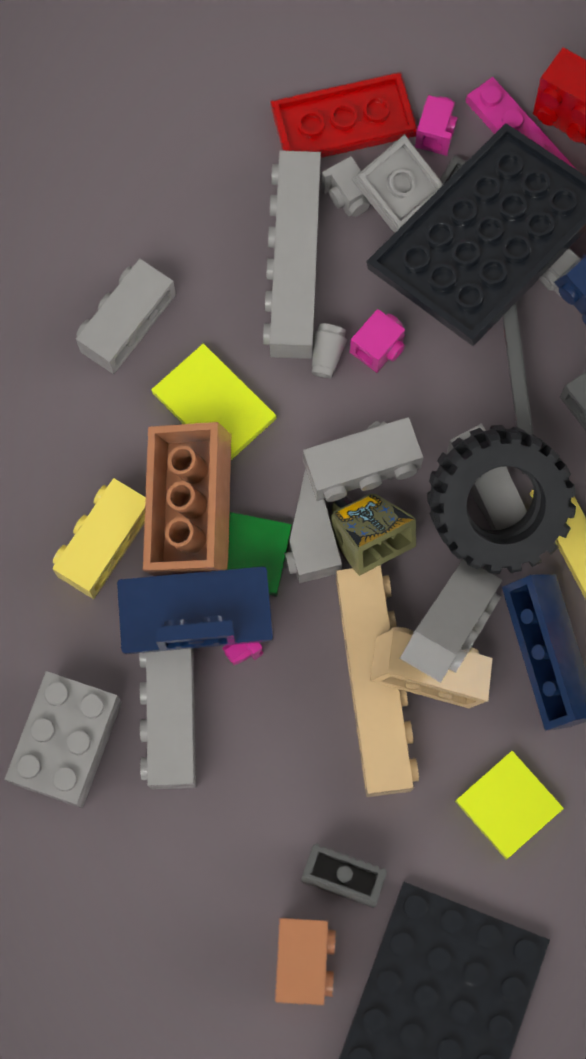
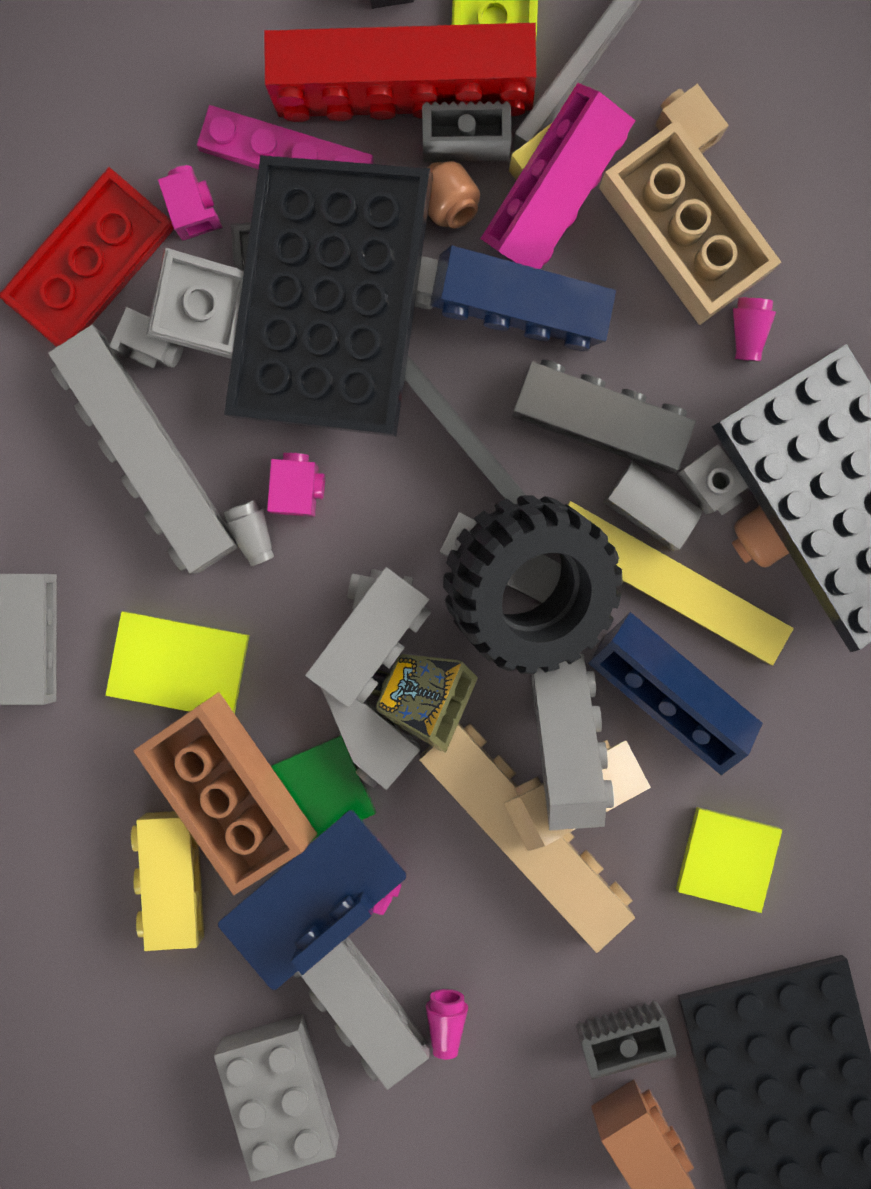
camera: 35 degrees left, 15 degrees up
(221, 775) = (446, 1021): none -> dark pink cone

